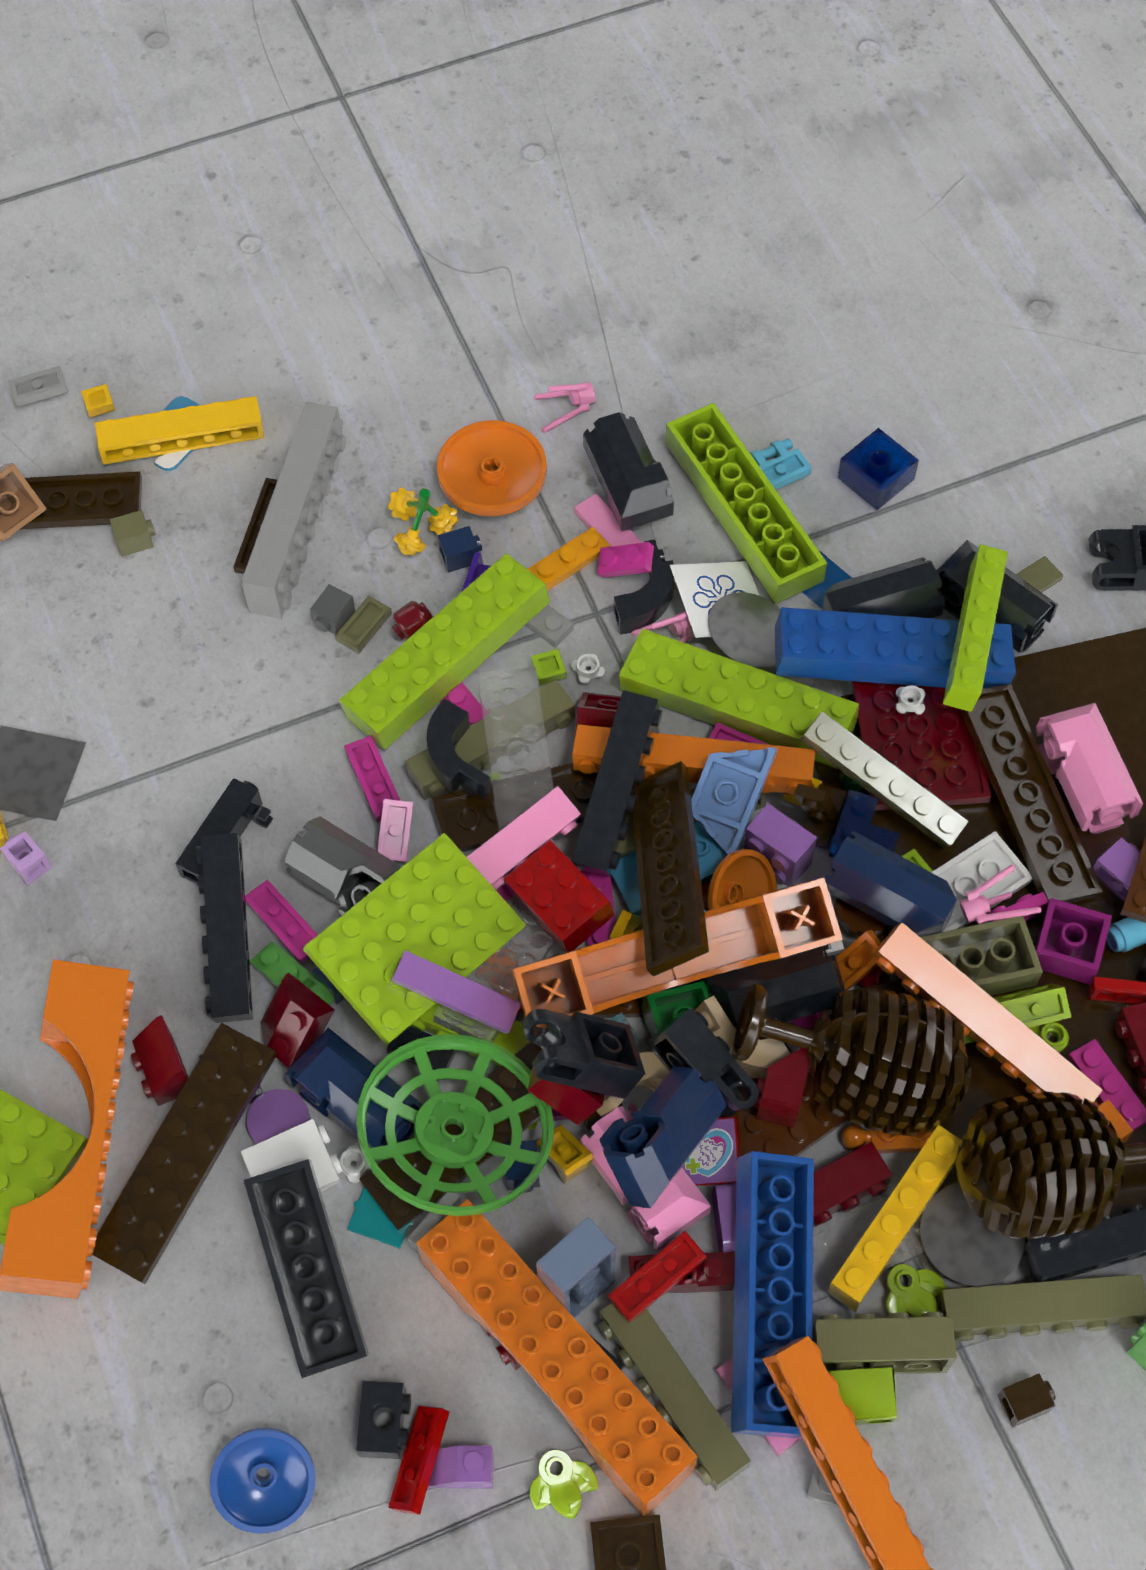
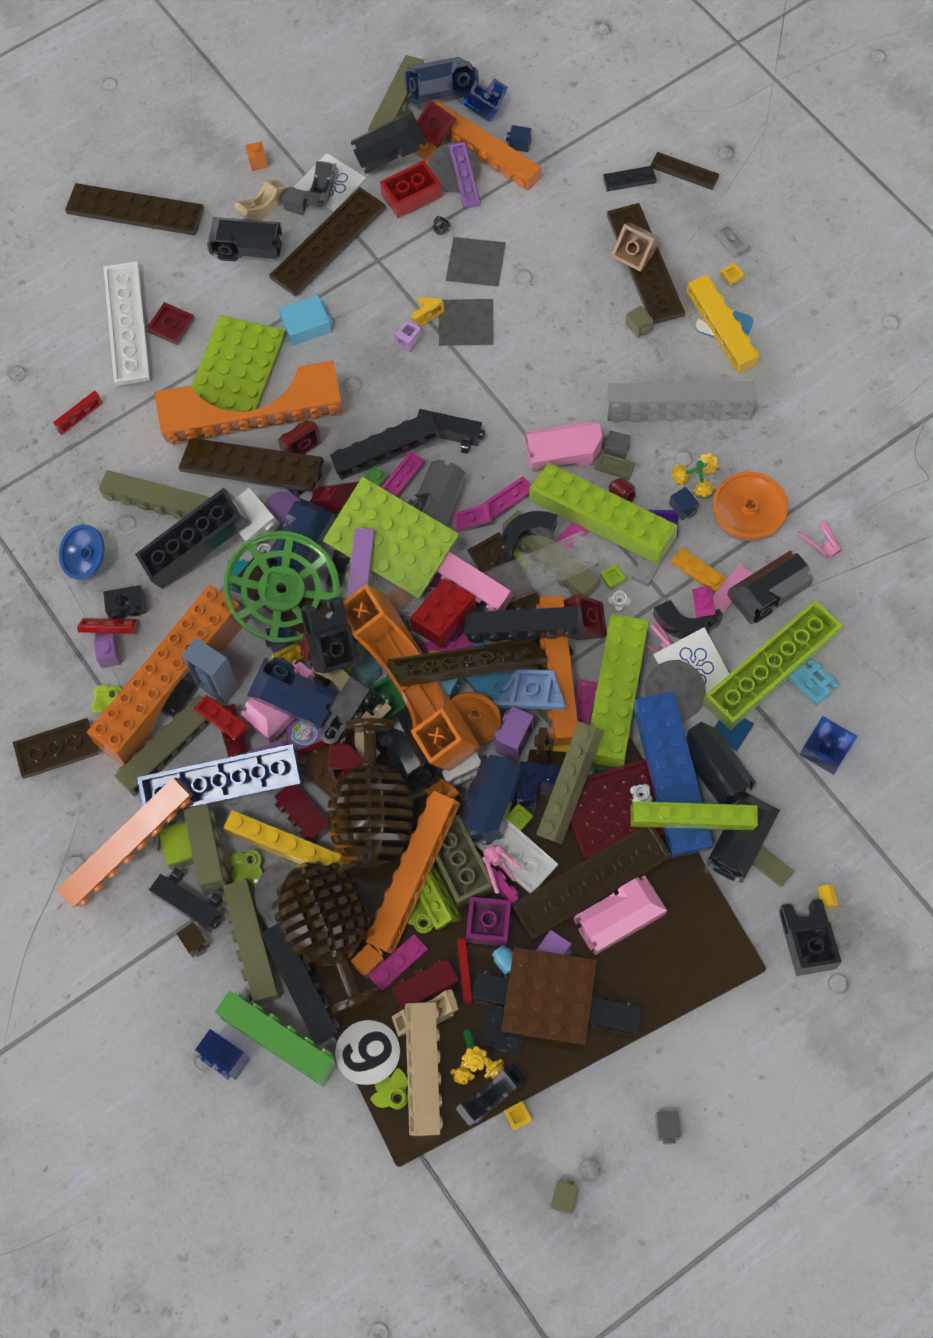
camera: 80 degrees right, 5 degrees up
(187, 1333) = (149, 495): none -> olive brick
(313, 676) = (564, 445): none -> bright pink brick
(960, 1402) = (185, 902): none -> black brick
(1083, 526) = (828, 896): none -> yellow piece

